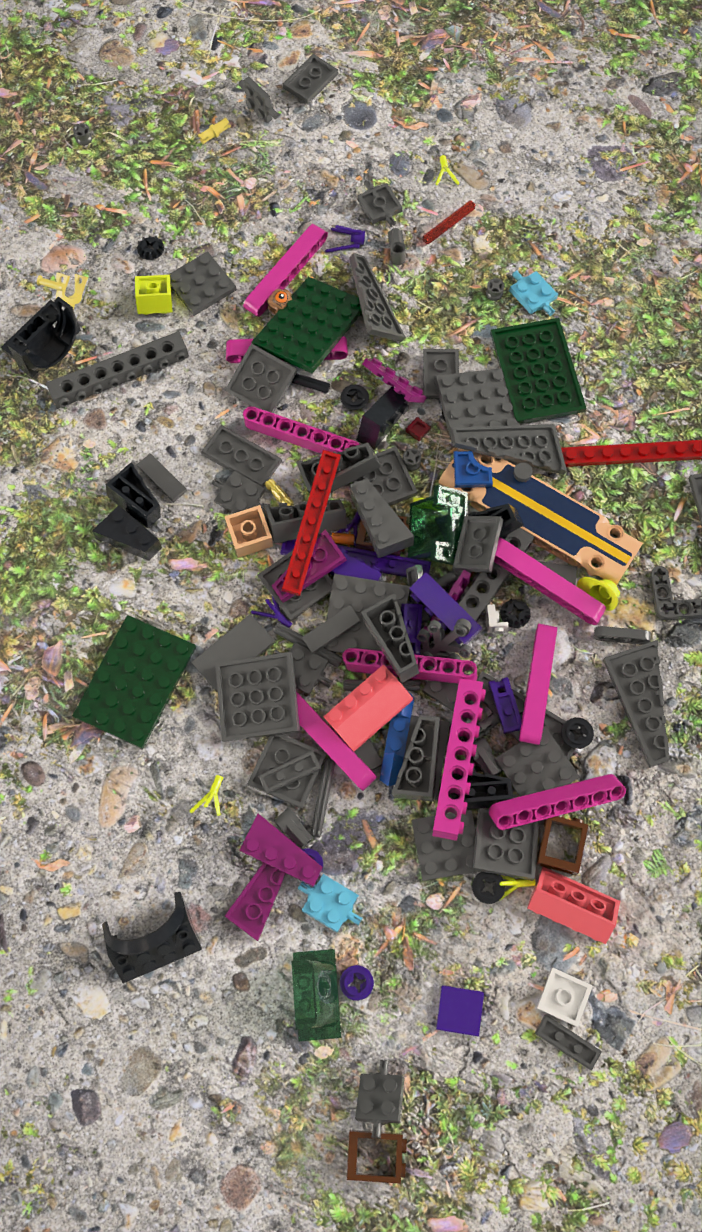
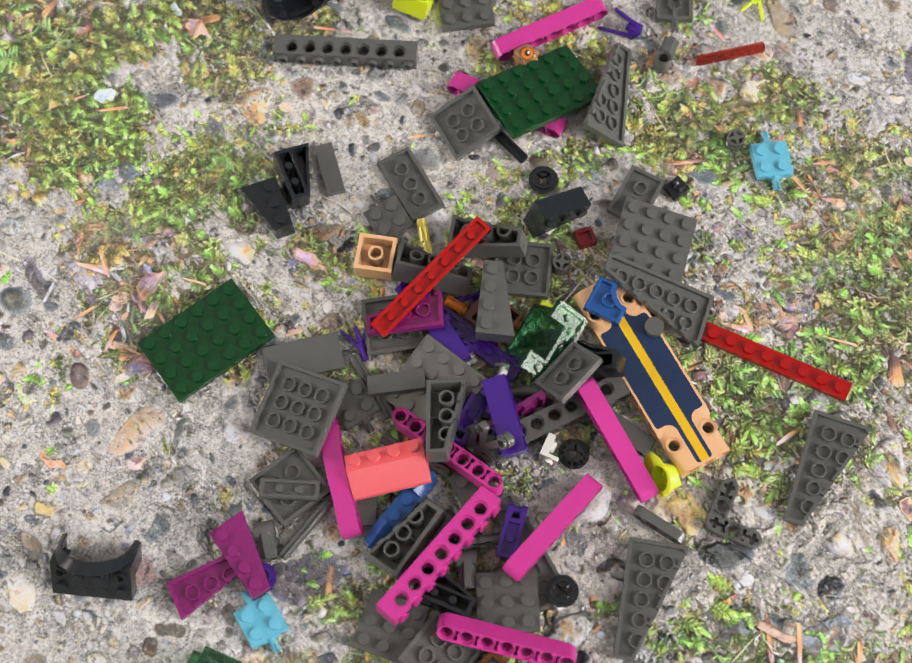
camera: 30 degrees right, 0 degrees up
(208, 797) = (218, 471): neon yellow plant -> none
(294, 429) = (471, 183): dark pink beam -> none
(401, 385) = (589, 187): magenta wing -> none
(470, 352) = (676, 188): none -> black tile
(538, 370) = (729, 238): dark green plate -> none

